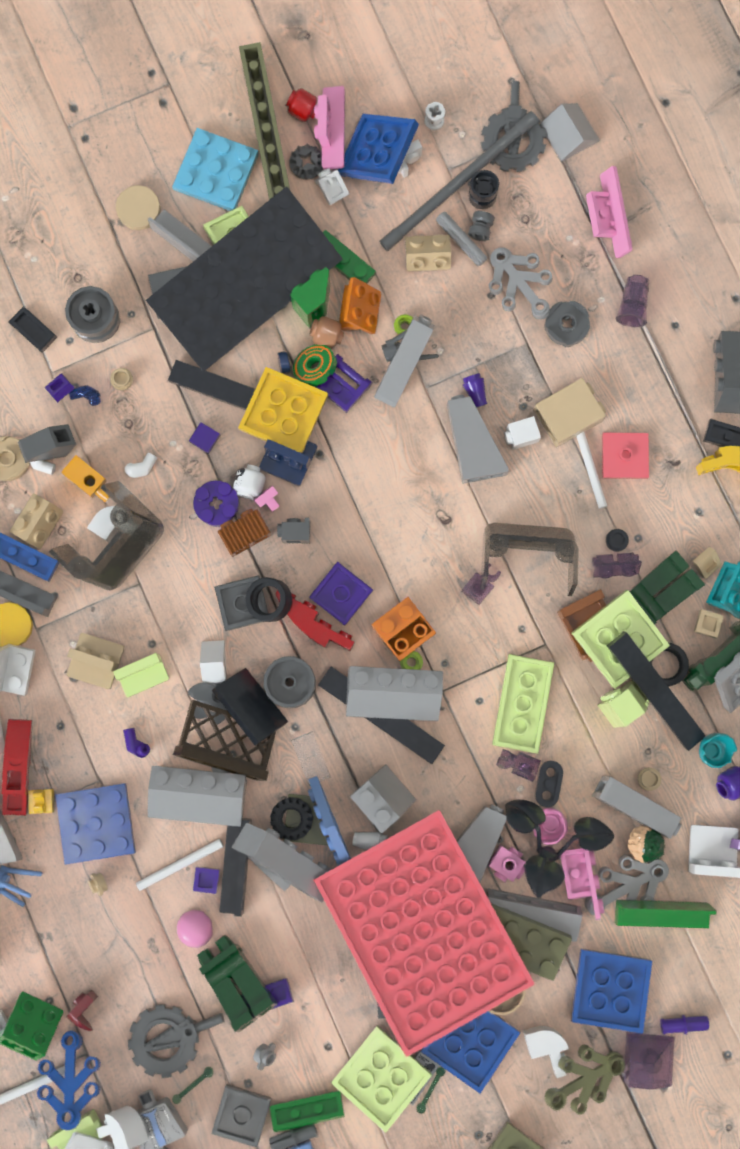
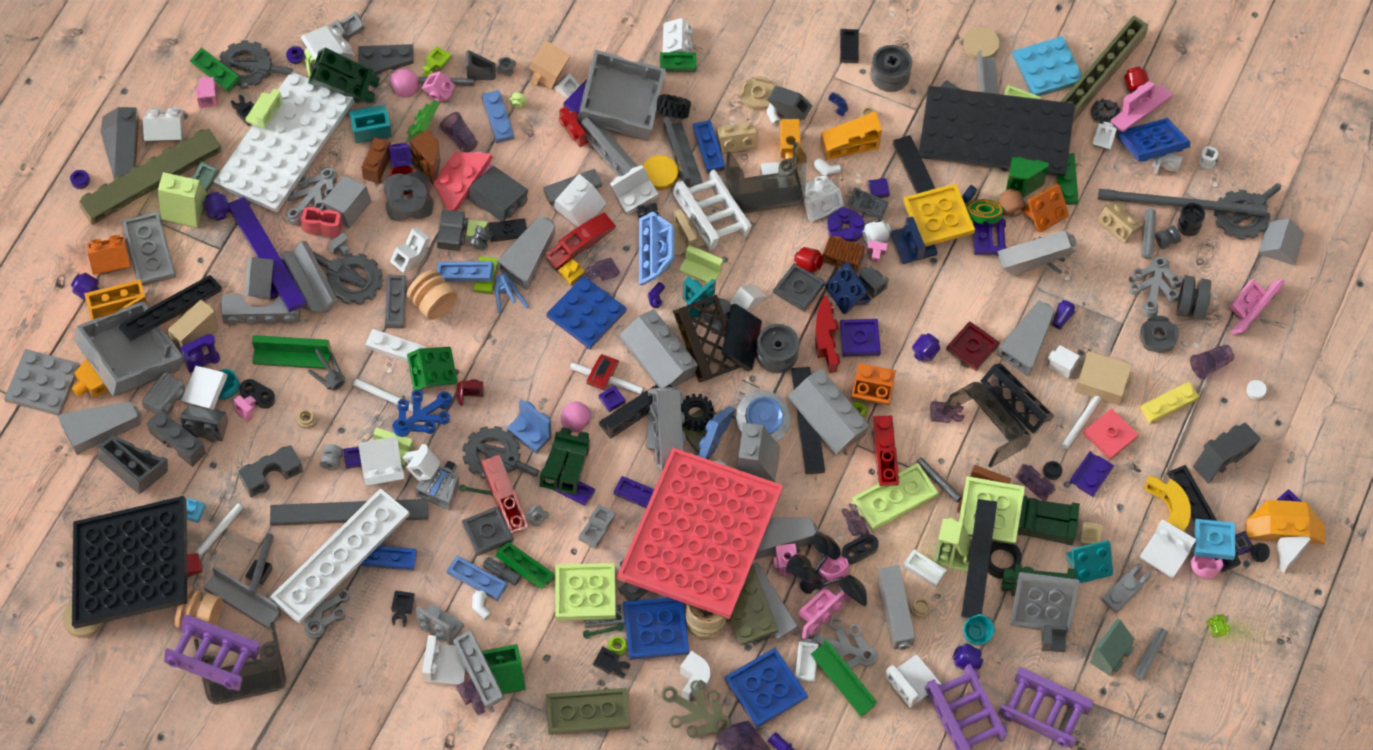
camera: 45 degrees right, 20 degrees down
(43, 676) = (644, 210): none -> black wheel
(59, 387) = (829, 86): dark purple tile -> none
(66, 769) = (604, 269): none -> clear purple plate
(88, 707) = (655, 247): none -> light blue wedge
(97, 883) = (552, 340): tan plate -> none
(99, 636) = (700, 220): none -> white fence
(132, 417) = (852, 137): none -> light orange wedge
(168, 500) = (822, 198): none -> white bracket
(170, 864) = (602, 371): none -> red slope
(172, 986) = (531, 427): none -> medium blue bracket
(175, 710) = (694, 292): none -> teal bracket
(212, 462) = (868, 203): none -> dark grey tile
(220, 1070) = (503, 493): none -> slope
(223, 570) = (809, 259): none -> red head
(252, 599) = (821, 303): black tyre -> none
(284, 562) = (847, 289): none -> dark blue bracket
(319, 942) = (633, 492): none -> dark purple plate
(322, 1006) = (597, 526): none -> light grey slope
(345, 755) = (764, 409): none -> piece
(404, 543) = (926, 347): none -> dark purple head
(437, 499) = (972, 346): none -> dark red plate
(462, 1097) = (620, 641): none -> lime plate
(466, 1114) = (608, 661): none -> black plate
(477, 676) = (885, 451): none -> red slope
(522, 501) = (1021, 392): none -> black fence
(540, 649) = (939, 480): none -> flat silver bar
(566, 261) = (1196, 298): none -> dark grey wheel
(614, 740) = (924, 568): none -> white tile
(620, 936) = (805, 663): none -> white tile
(638, 375) = (1169, 402): none -> light yellow plate
(645, 844) = (877, 633): piece -> none
(648, 508) = (1091, 473): none -> dark purple plate
(691, 289) = (1256, 390): none -> white tile
(708, 623) = (1054, 563): tan plate -> none

